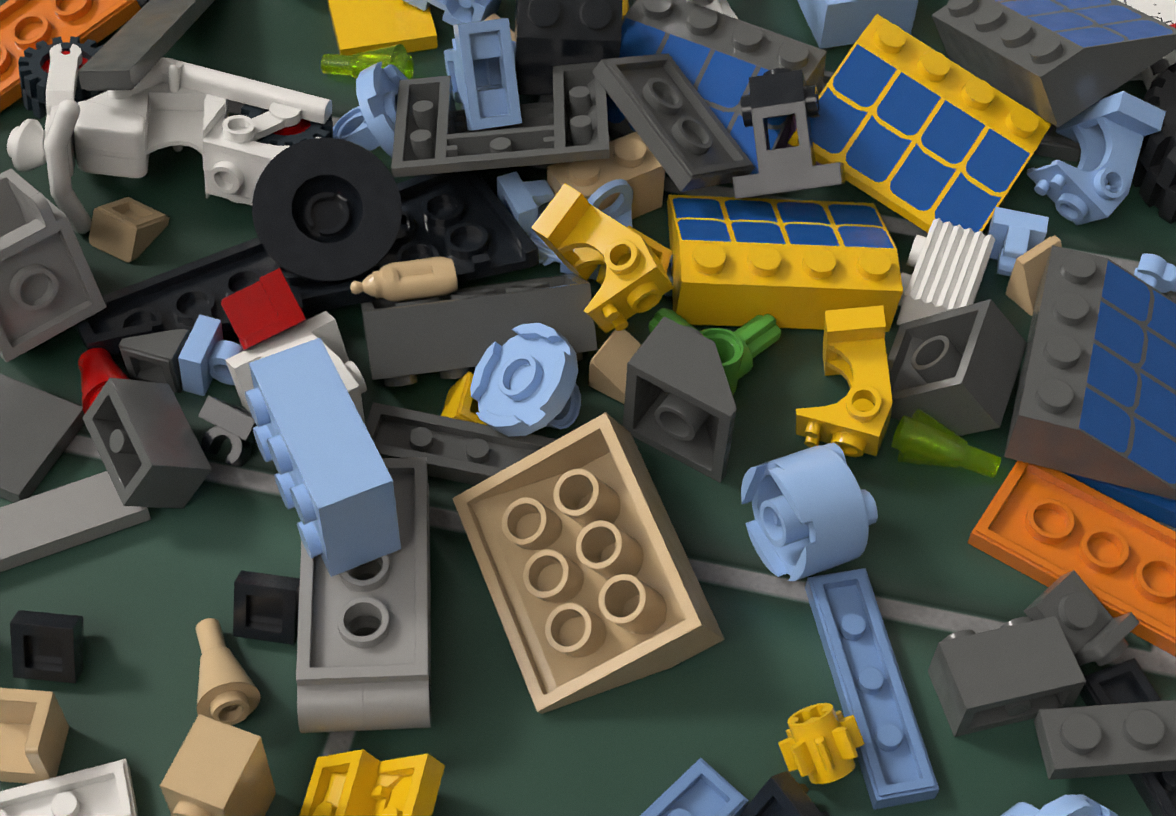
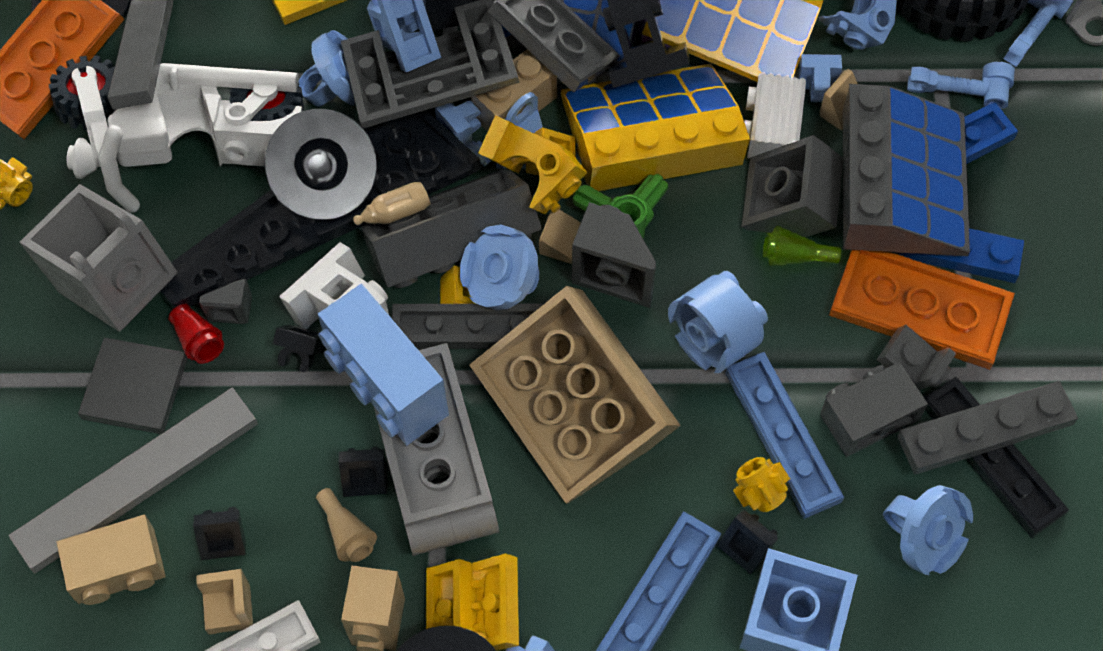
camera: 10 degrees left, 10 degrees up
(125, 228) = (166, 201): tan slope -> none
(146, 444) = (242, 372): dark grey brick -> none
(205, 356) = (263, 294): light blue tile -> none
(262, 309) = (295, 252): red panel -> none
(359, 61) = (310, 25): clear neon green cone -> none
(857, 351) = (728, 192): yellow tile -> none

